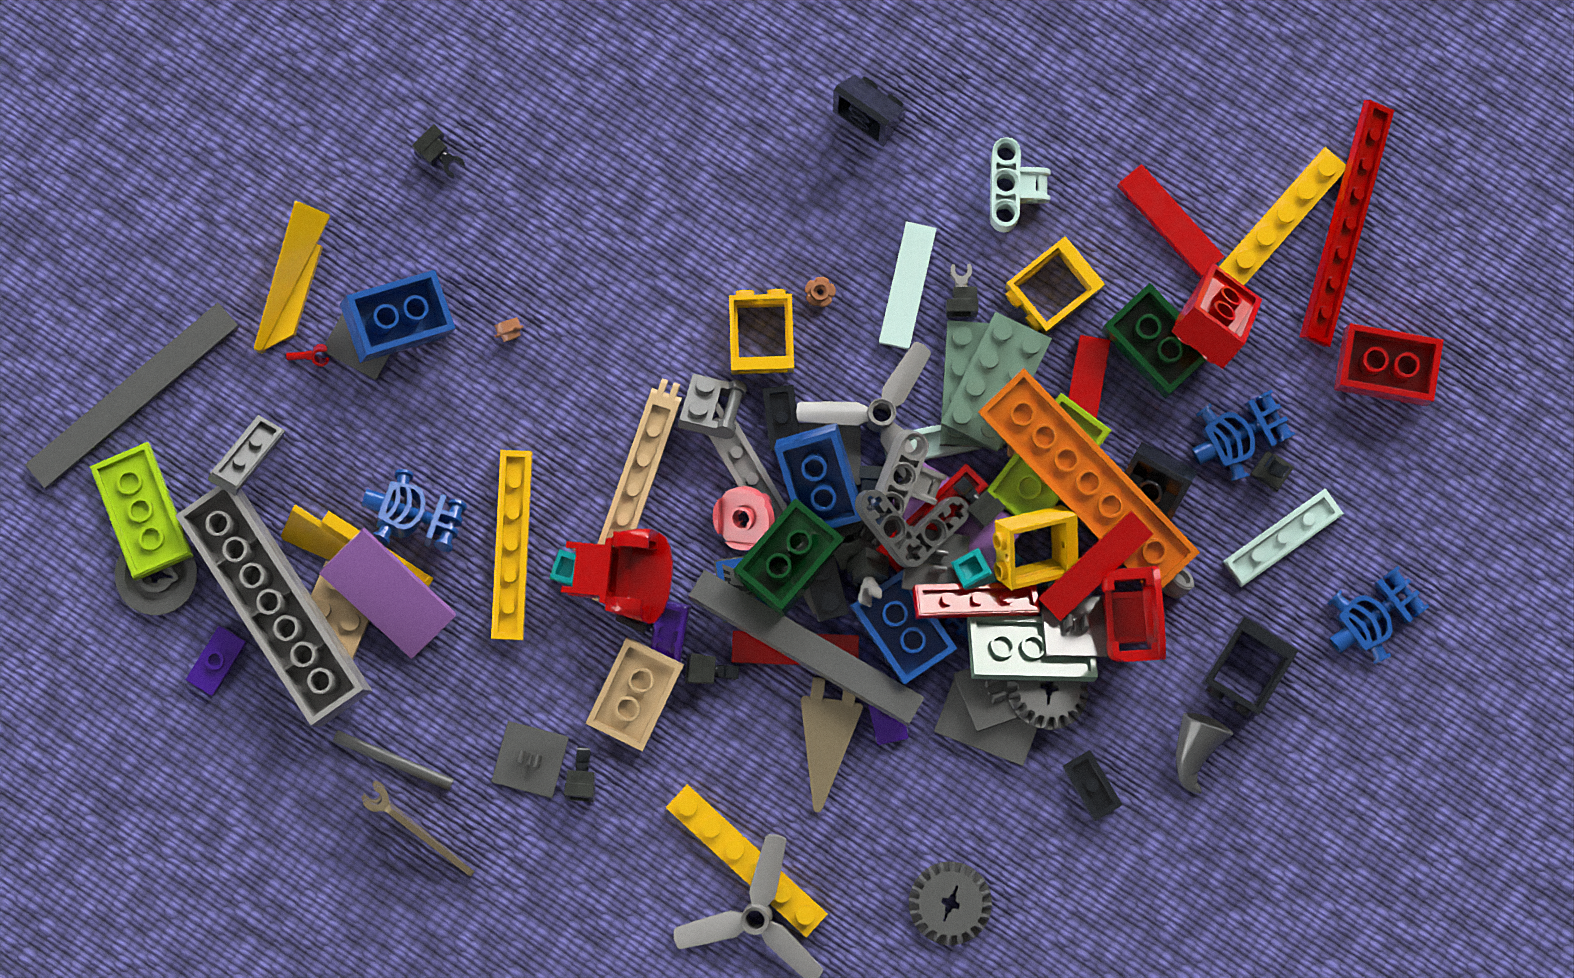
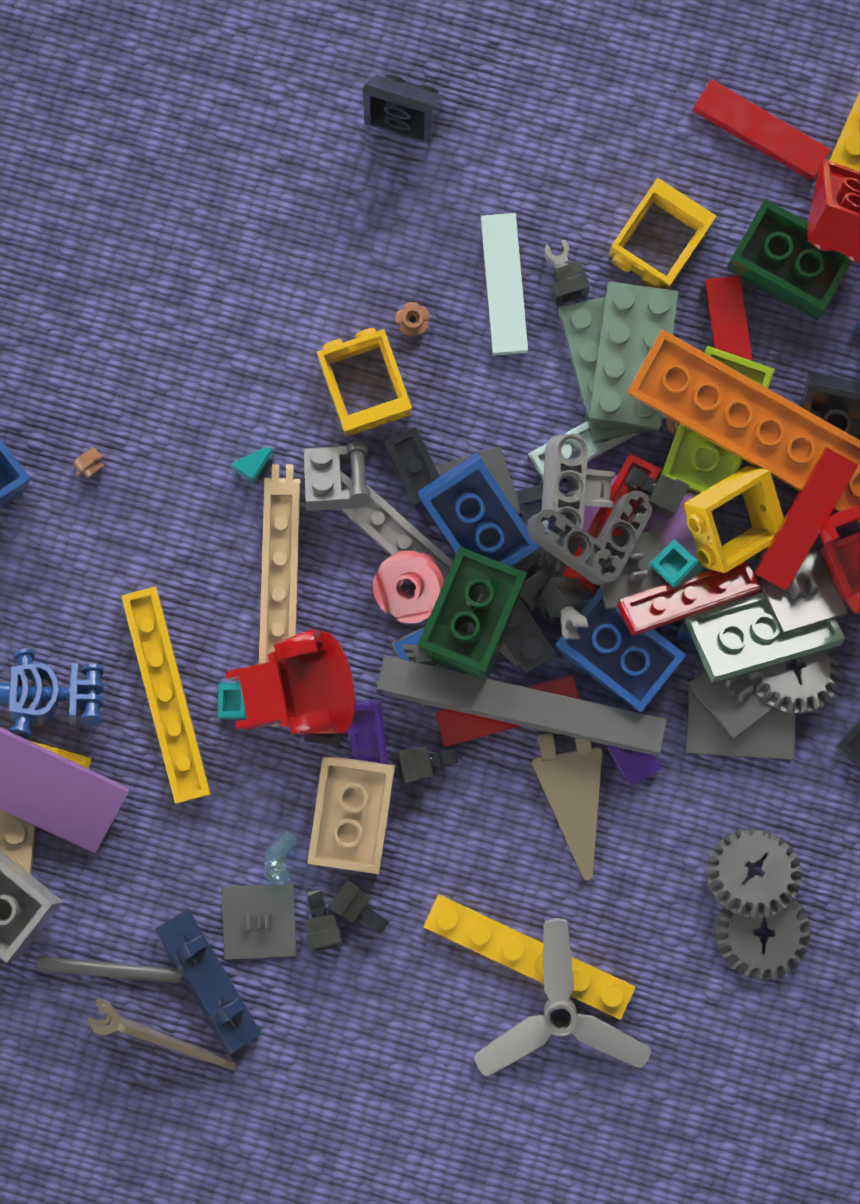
camera: 25 degrees left, 0 degrees up
(472, 795) = (208, 981): none -> dark blue hinge
(560, 710) = (276, 859): none -> clear light blue arm
(612, 768) = (352, 902): none -> pearl dark grey piece
(647, 374) = (254, 465): none -> teal slope
(892, 396) = (526, 405): light grey piece -> none
(958, 871) = (759, 896): none -> dark grey gear
(1023, 181) = (598, 135): light aqua piece -> none

